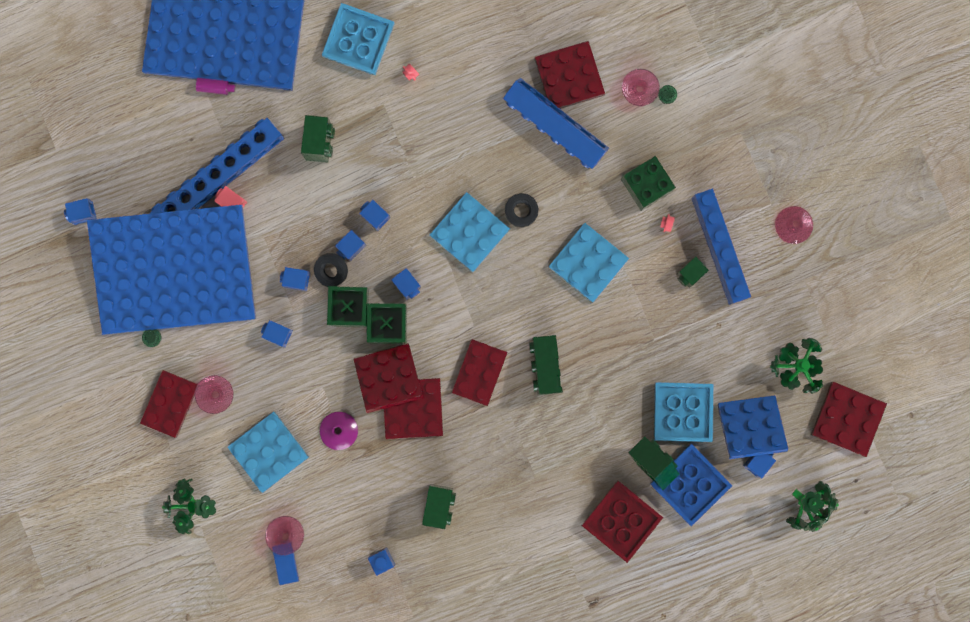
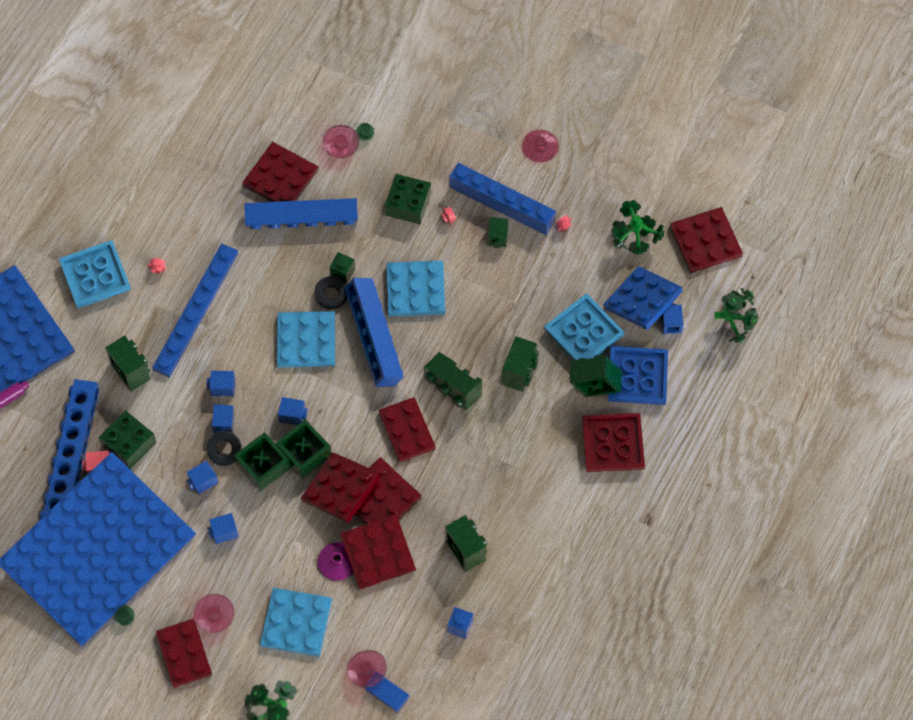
camera: 40 degrees left, 20 degrees down
(266, 200) = (127, 439): none -> dark green brick
(371, 452) = (378, 552): none -> dark red plate
(409, 134) = (195, 310): none -> blue plate
(522, 273) = (374, 332): none -> blue brick
(546, 198) = (342, 267): none -> dark green brick
(607, 399) = (519, 364): none -> dark green brick
(750, 309) = (564, 223): none -> coral plate

